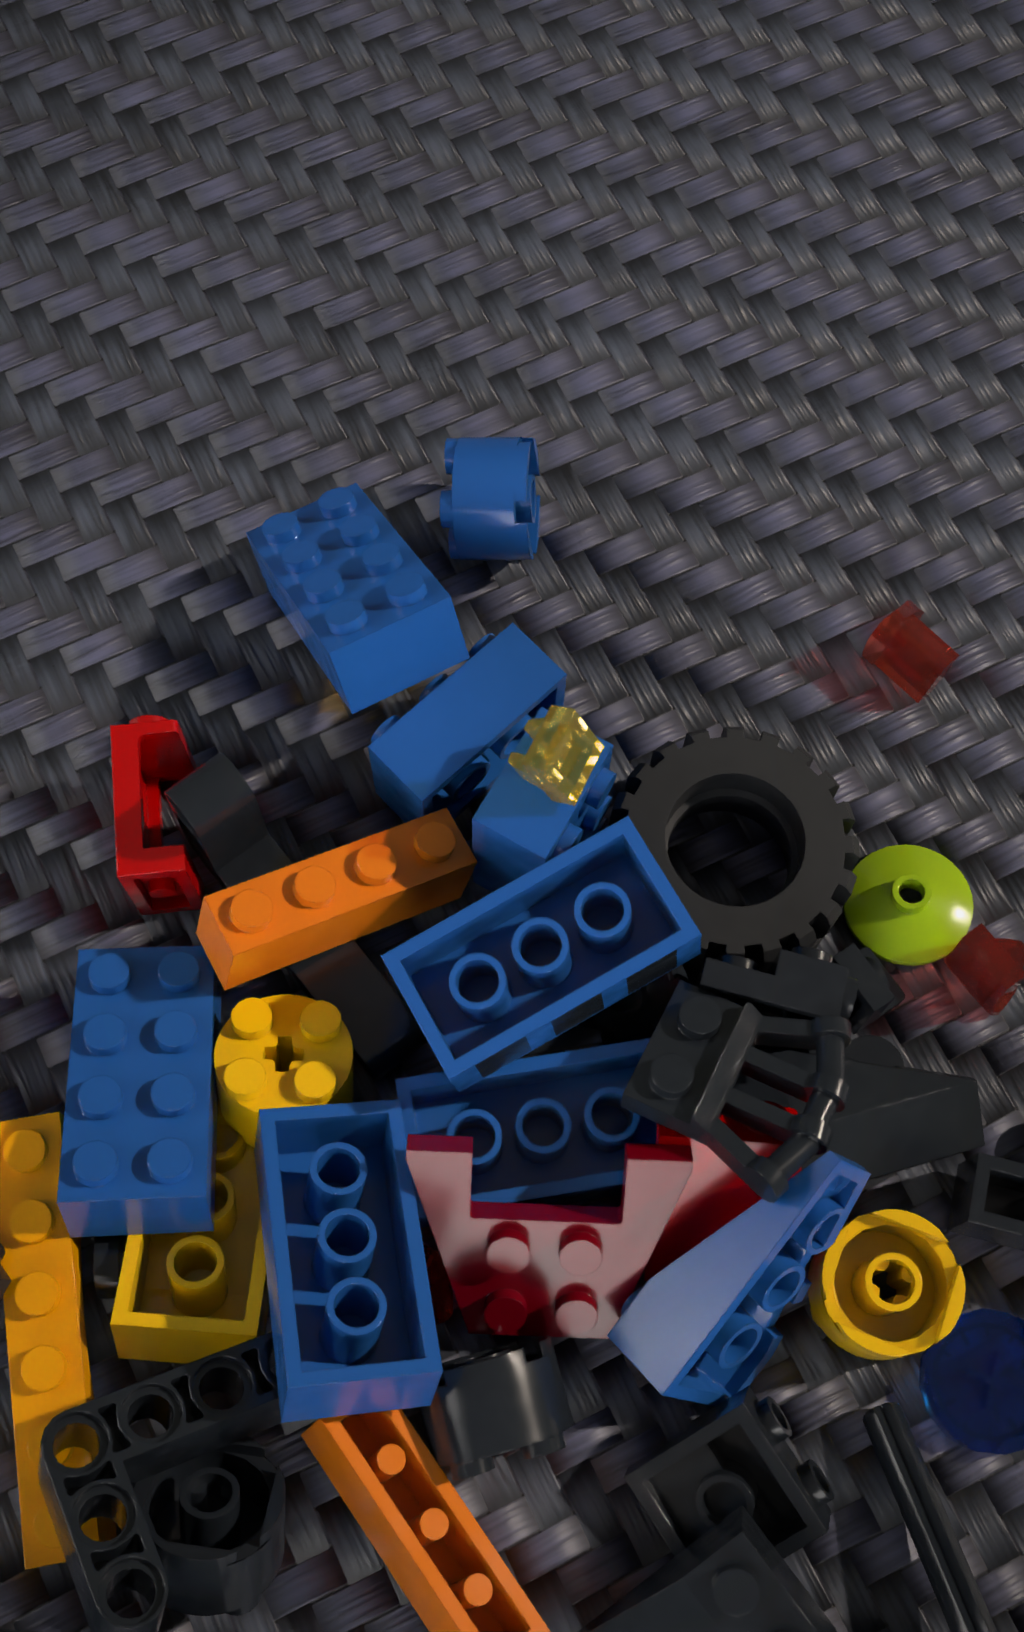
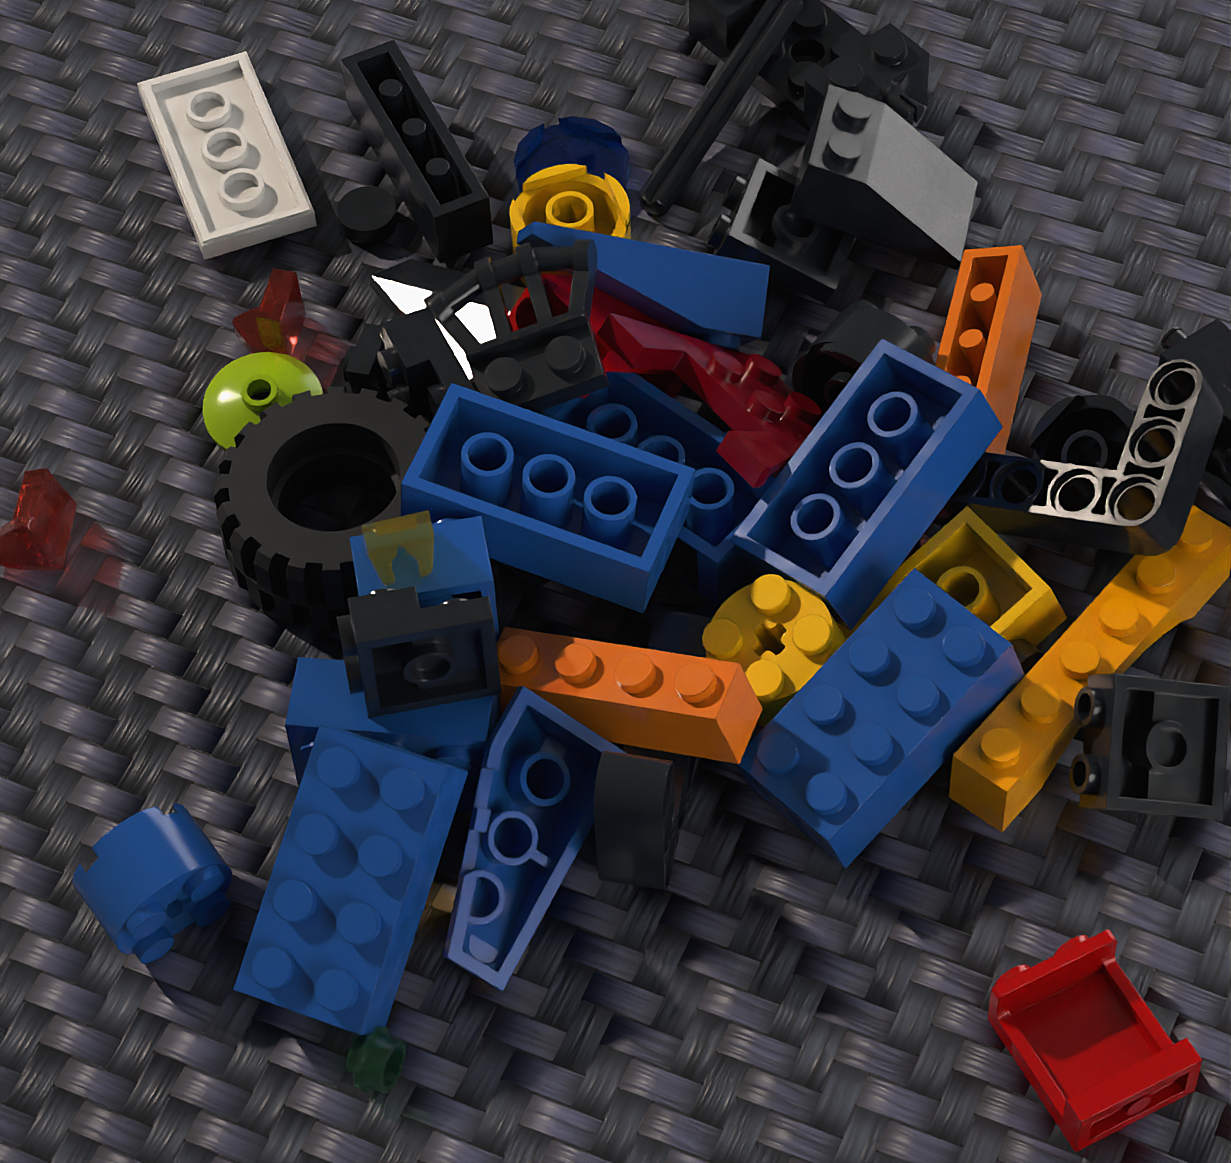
camera: 125 degrees left, 15 degrees down
(142, 759) = (681, 905): red panel -> none
(237, 557) = (376, 1061): none -> clear green plate
(304, 758) = (522, 833): none -> blue wedge
(458, 708) = (415, 654): none -> black plate

